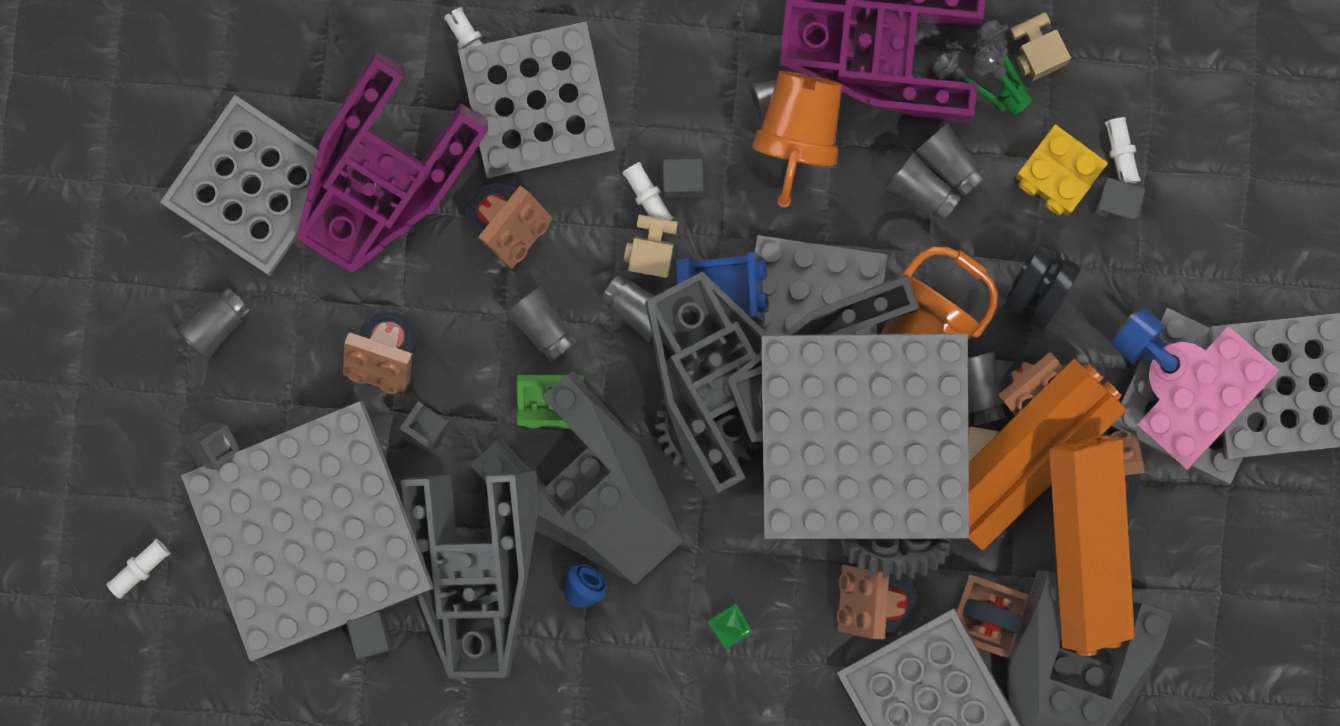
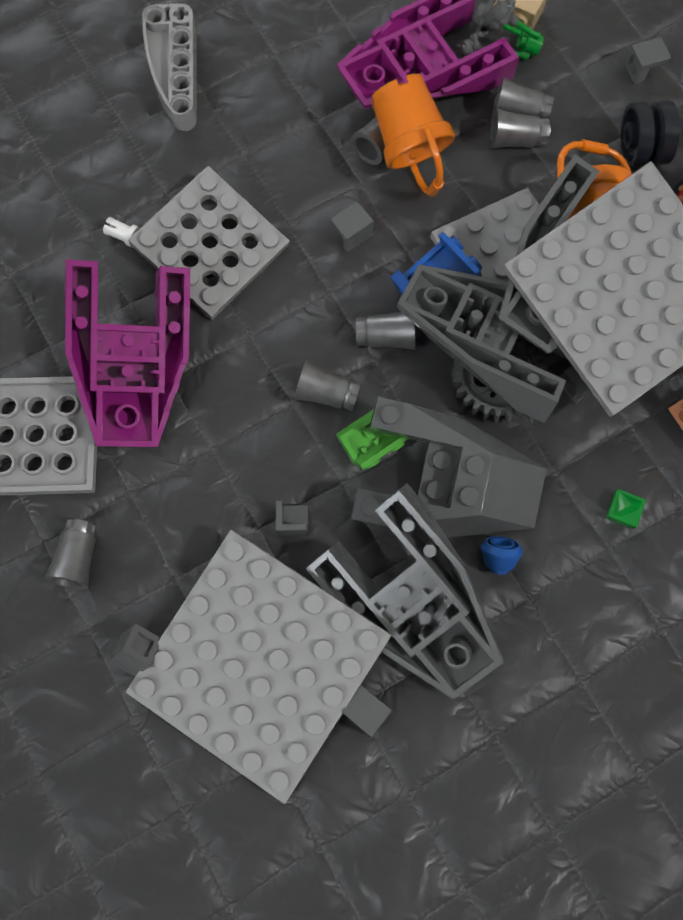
camera: 40 degrees left, 10 degrees down
(138, 568) = (139, 795): white pin -> none
(382, 352) = (222, 488): nougat plate -> none
(507, 221) = (248, 332): nougat plate -> none
(646, 192) = (335, 255): white pin -> none
(651, 254) = (368, 288): tan brick -> none
(1060, 171) = (594, 70): yellow plate -> none
(1122, 150) = (621, 31): white pin -> none

